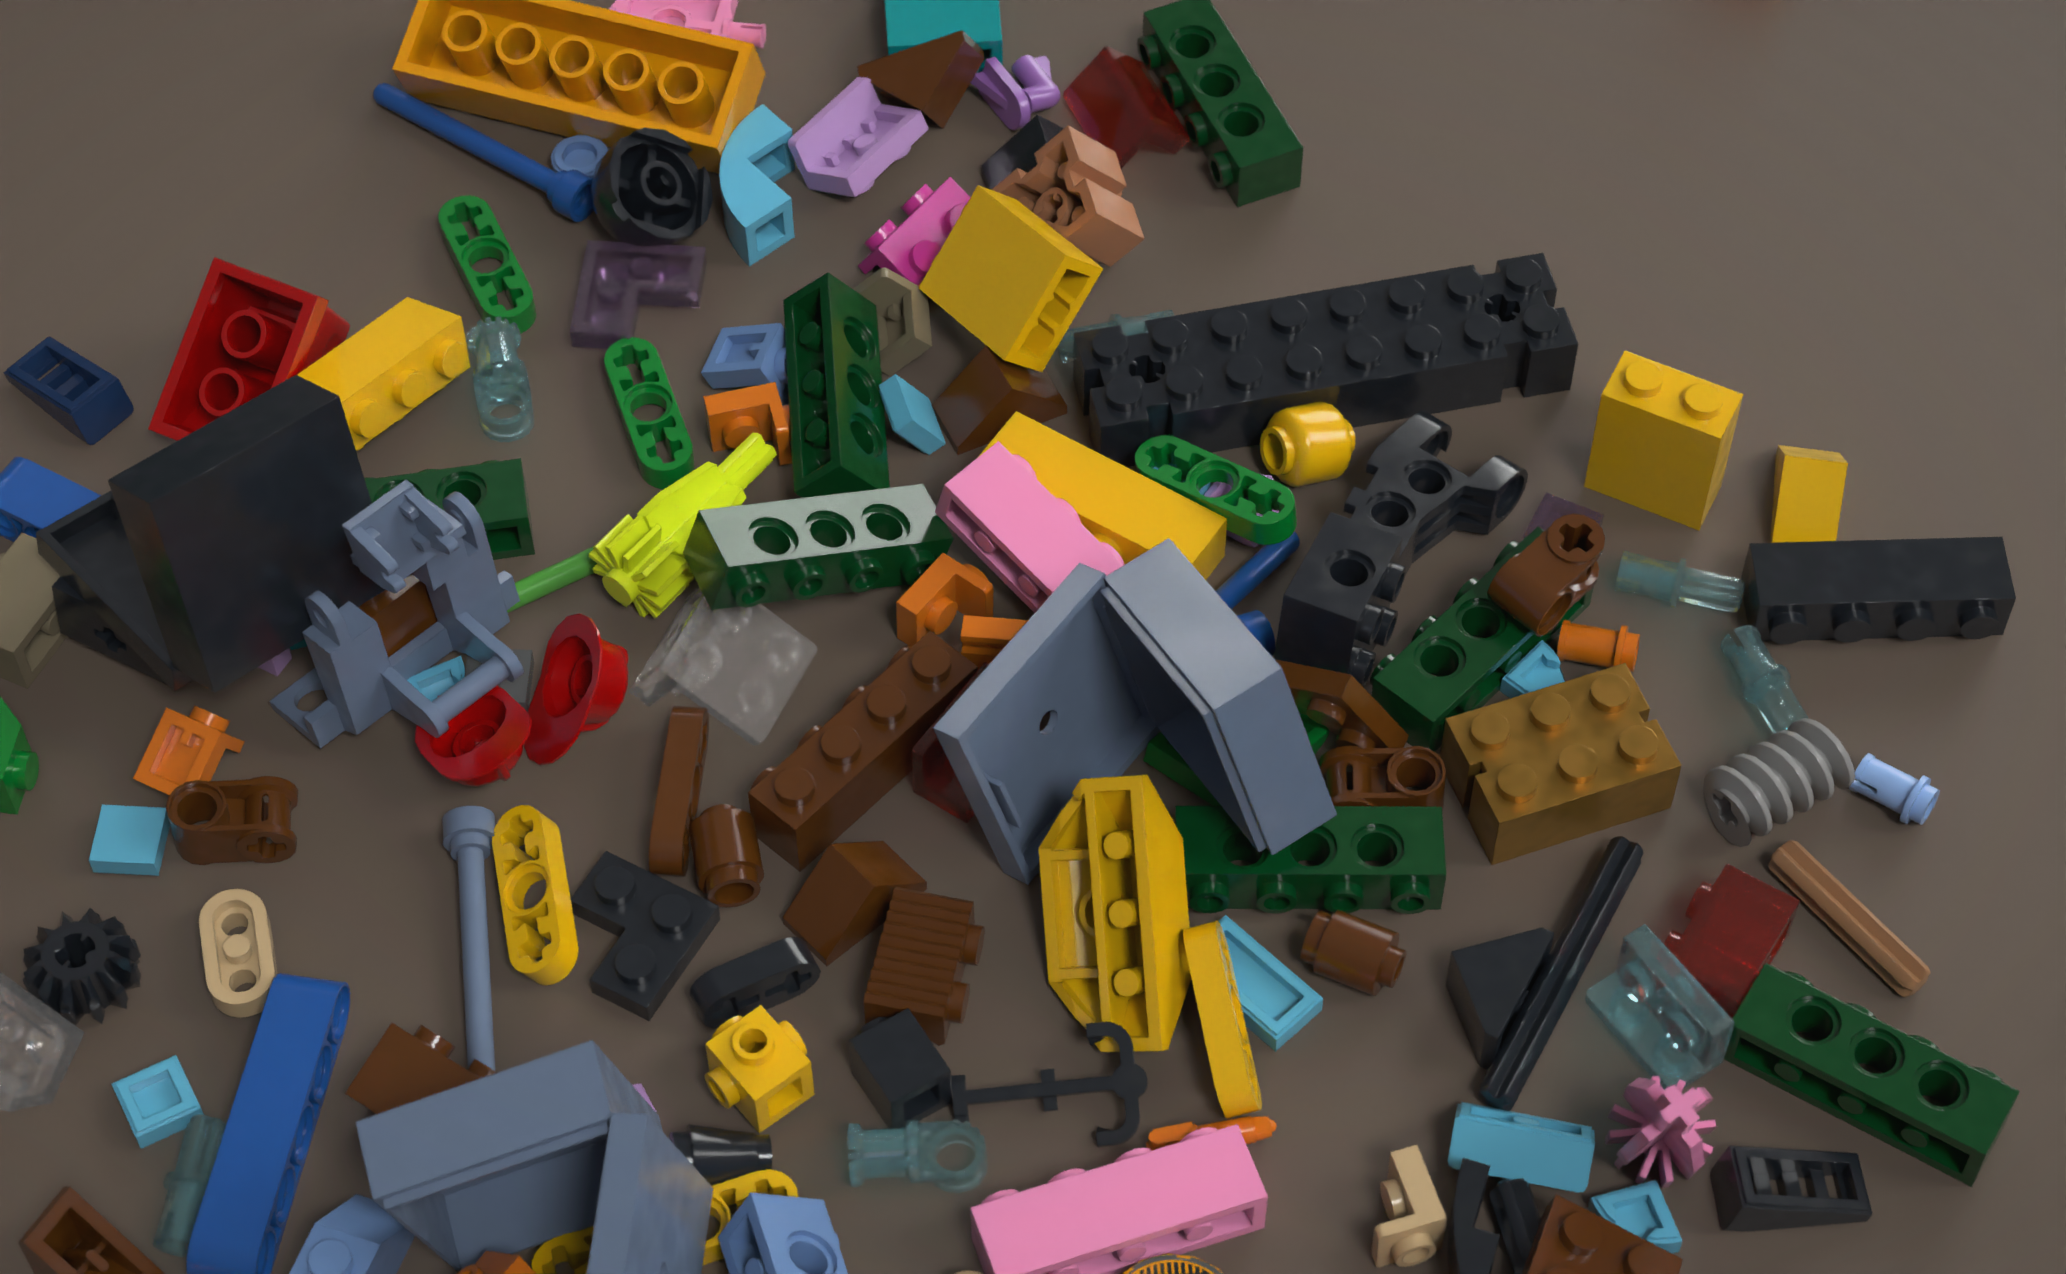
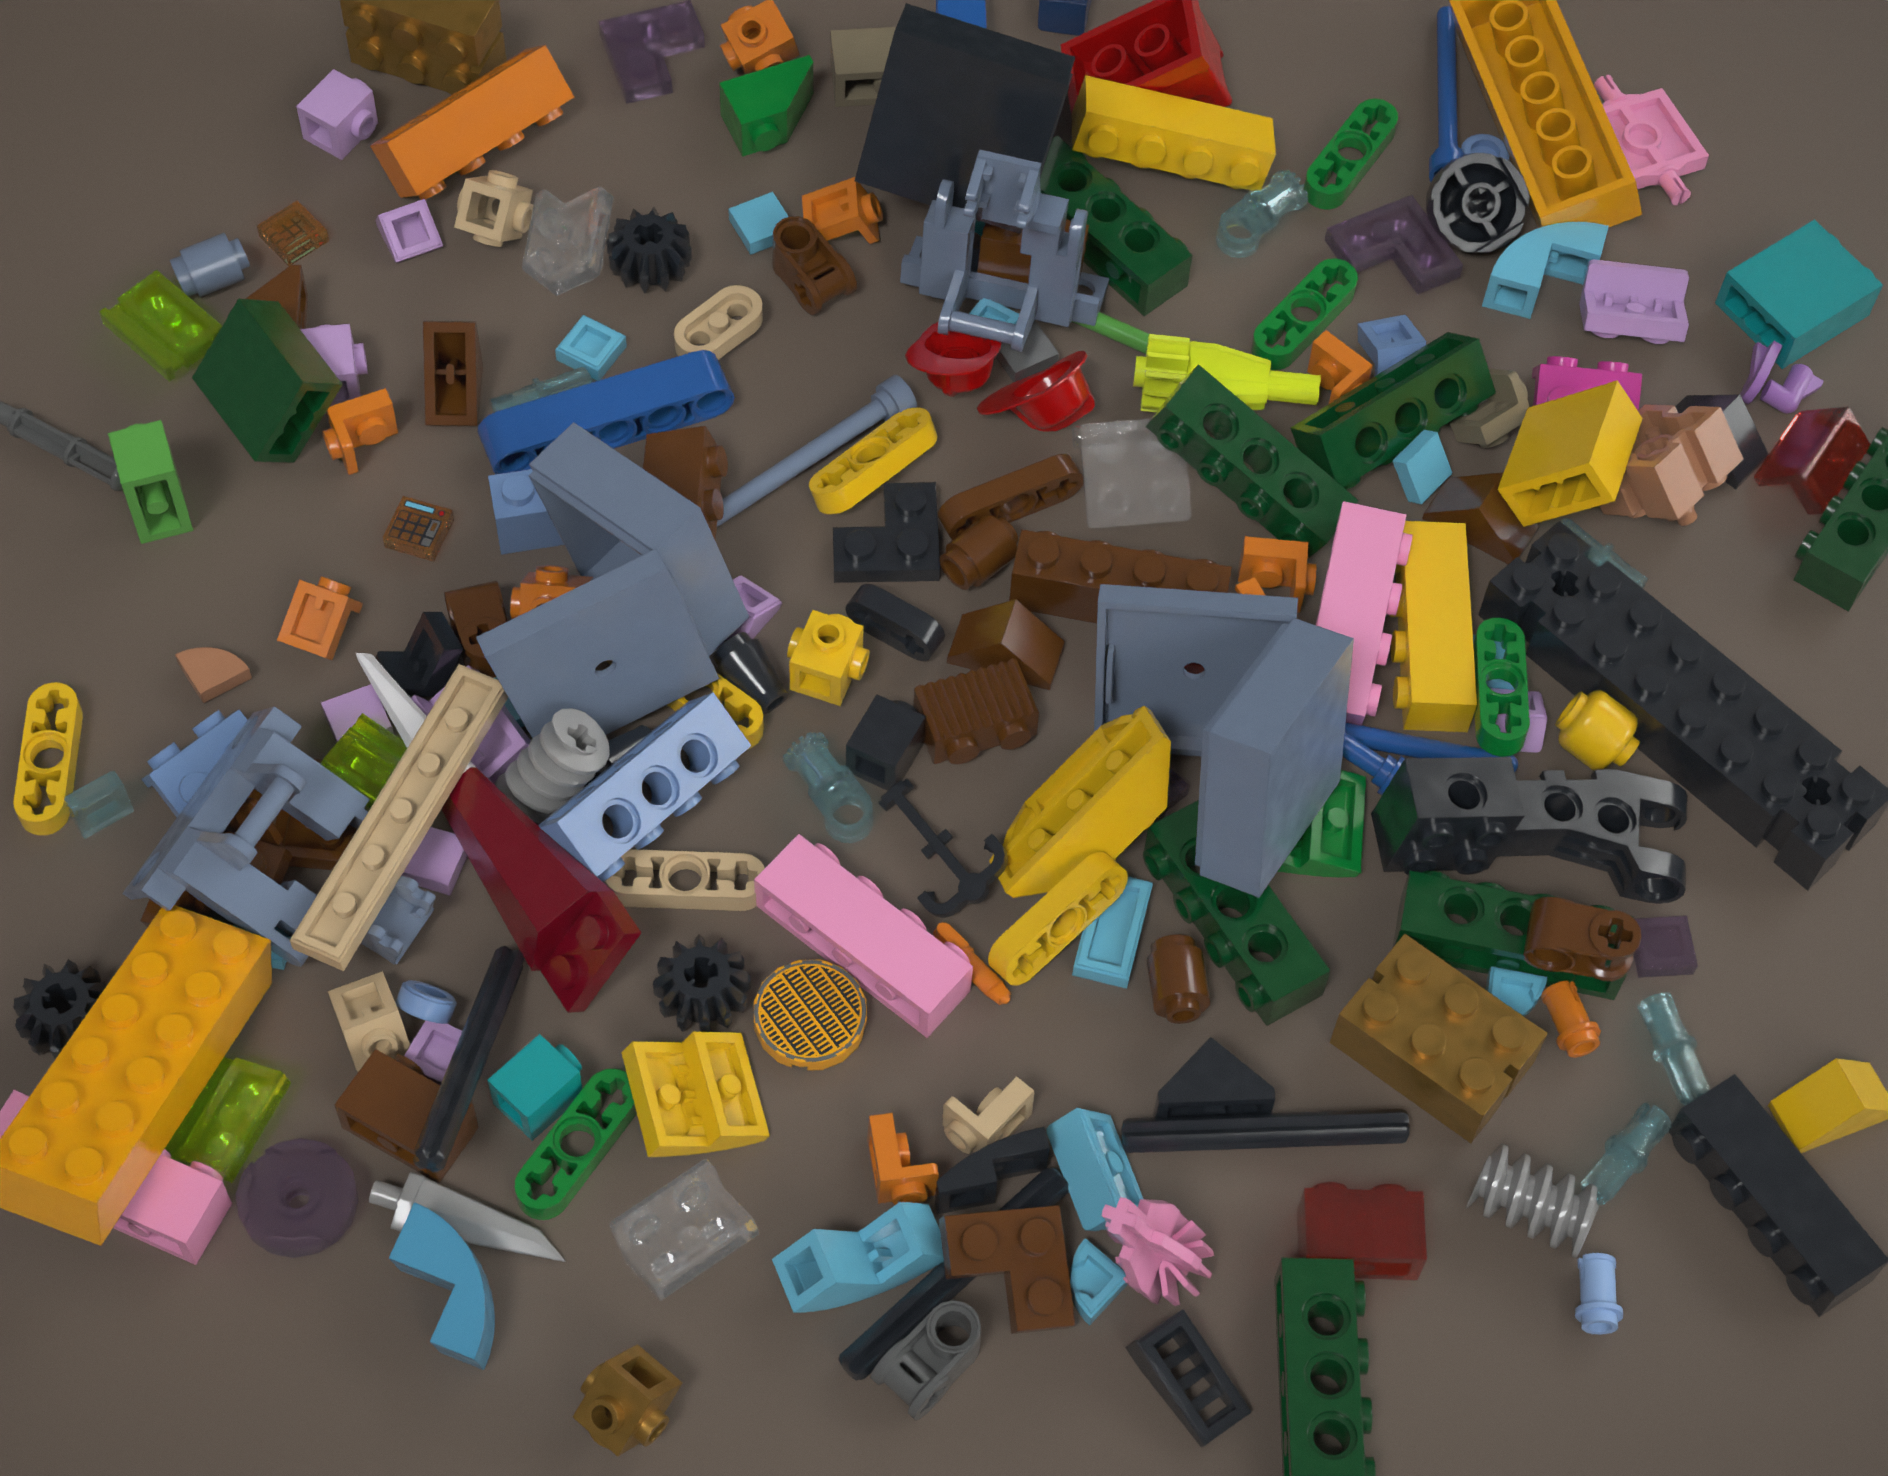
camera: 55 degrees right, 5 degrees up
(927, 75) = (1725, 315): reddish brown slope -> none
(1342, 707) = (1355, 848): reddish brown plate -> none
(1383, 776) = (1332, 924): reddish brown piece -> none
(1661, 1012) = (1263, 1211): clear light blue bracket -> none
(1662, 439) = (1779, 962): yellow brick -> none
(1849, 918) = (1456, 1314): medium nougat axle -> none

